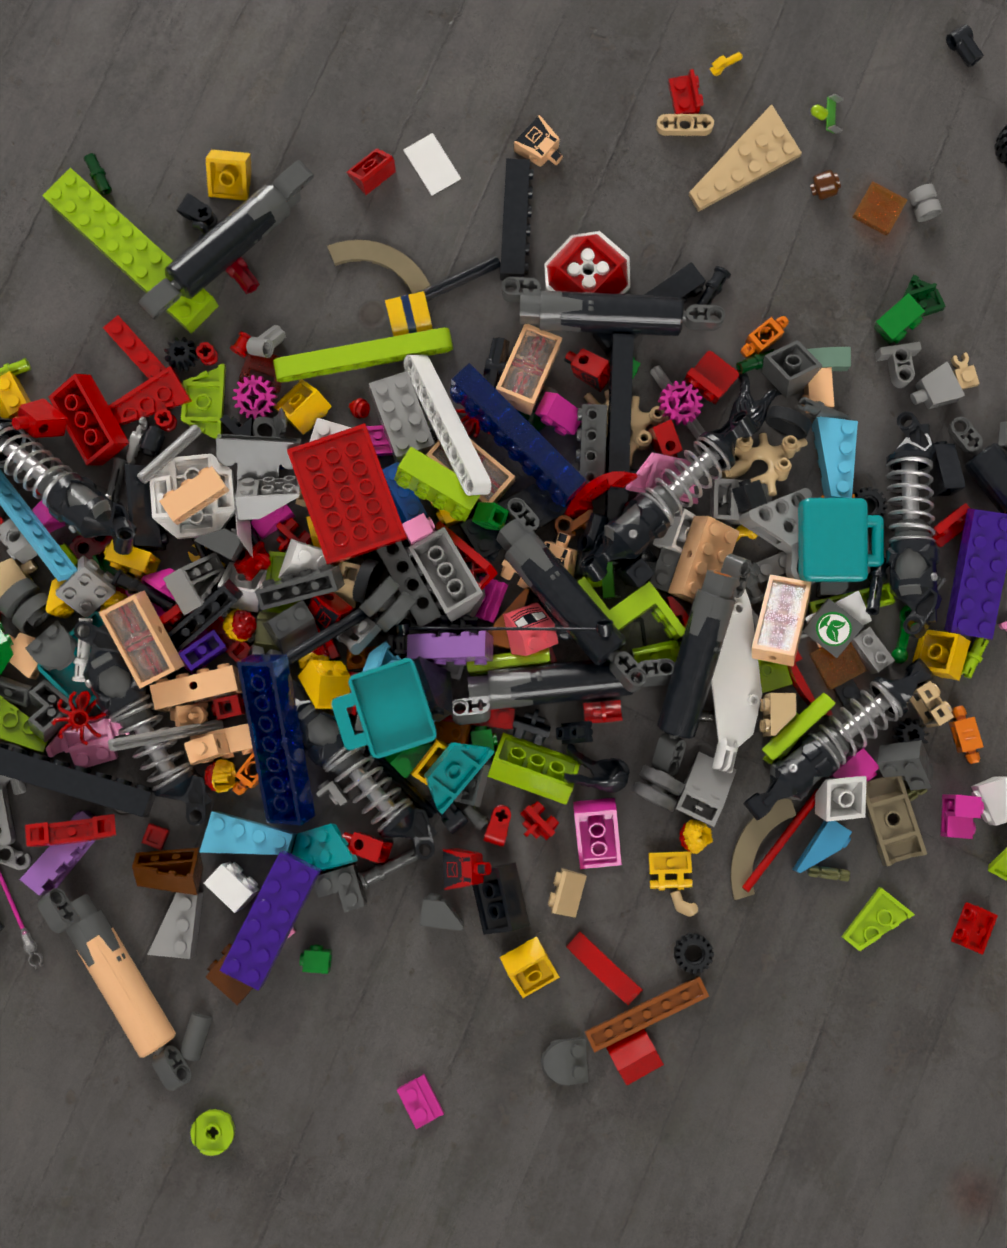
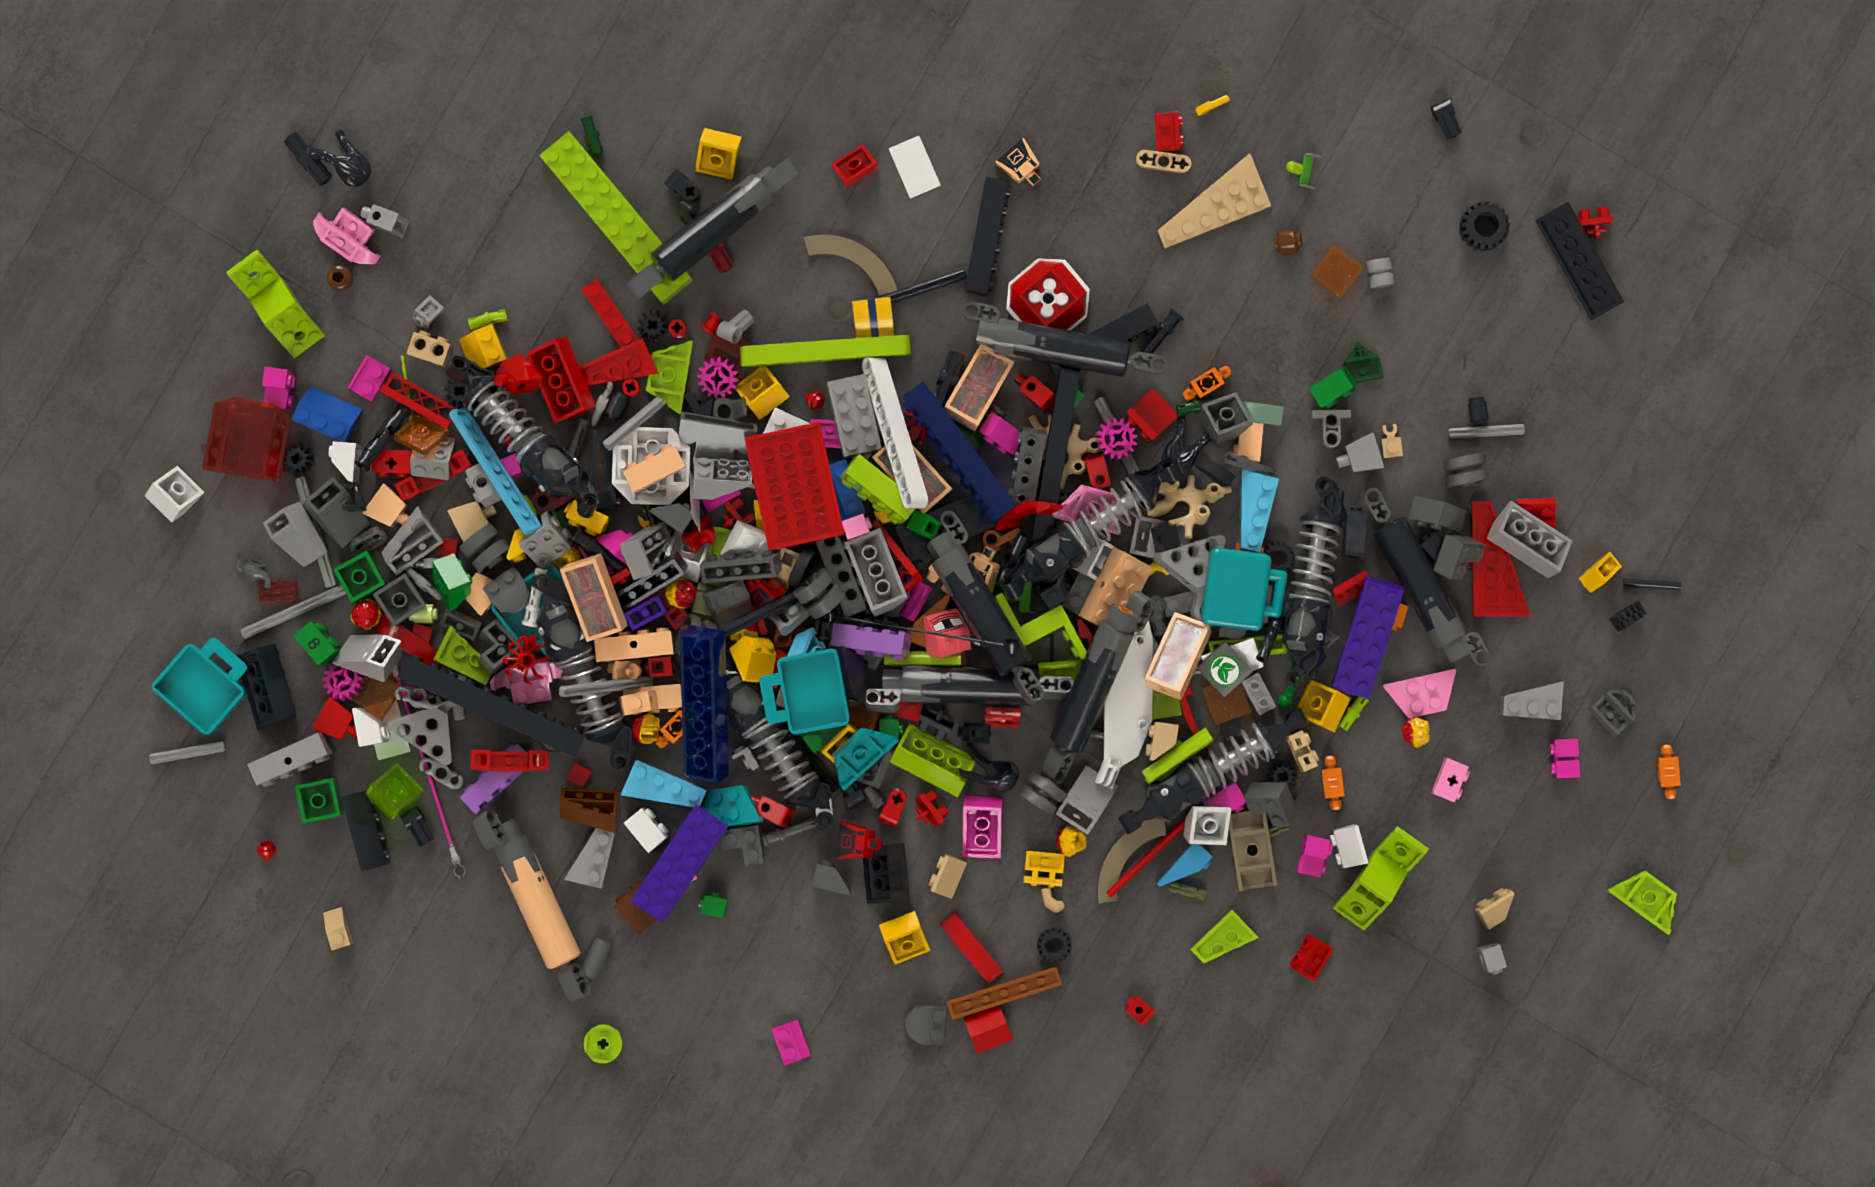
camera: 10 degrees right, 5 degrees up
(804, 1019) = (1146, 1013): none -> red brick

